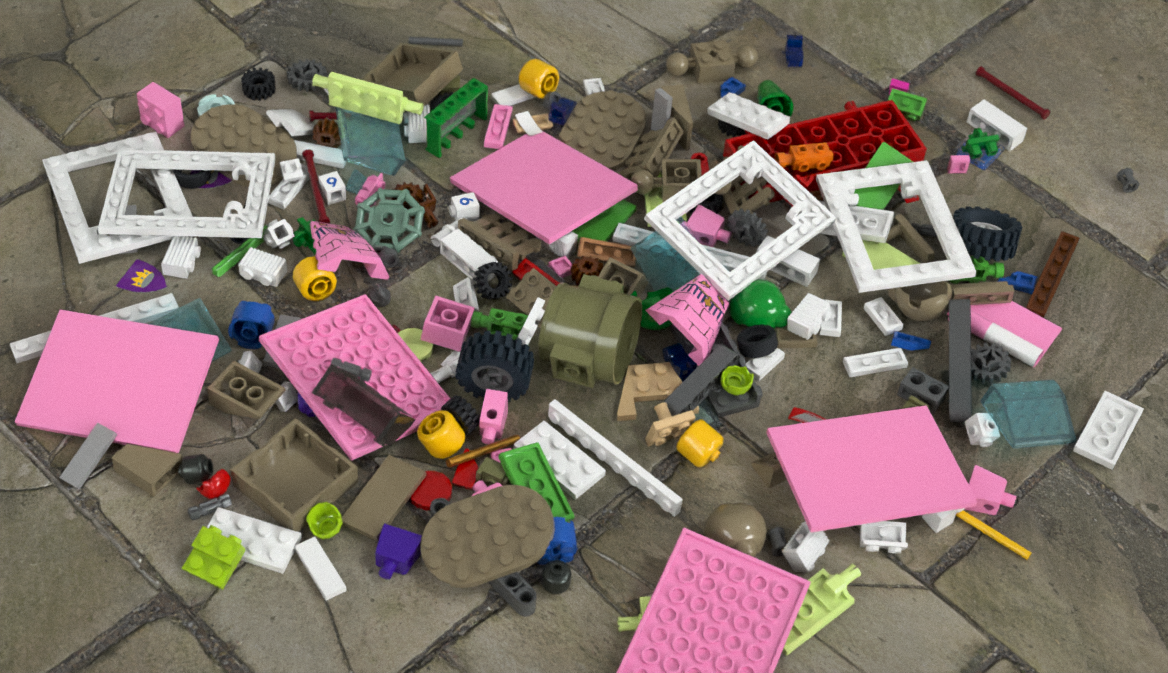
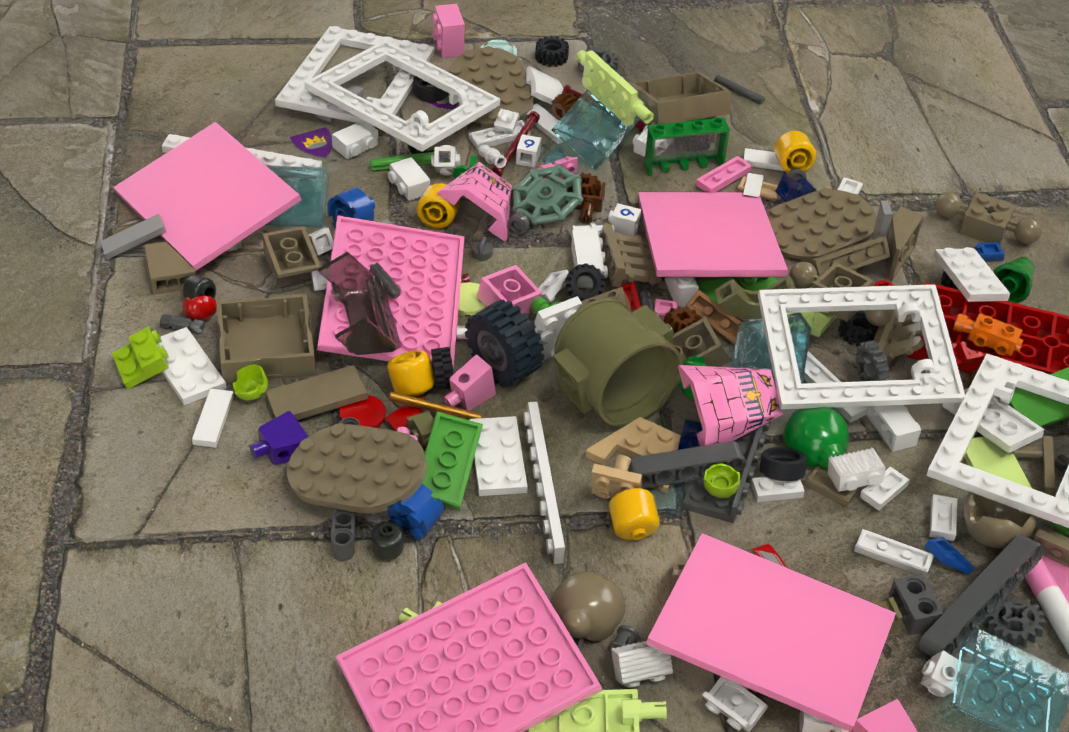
camera: 40 degrees right, 5 degrees down
(310, 209) = (492, 156): none -> white pin
(631, 223) = (743, 302): none -> olive arch
(708, 226) = (834, 347): bright pink torso -> none

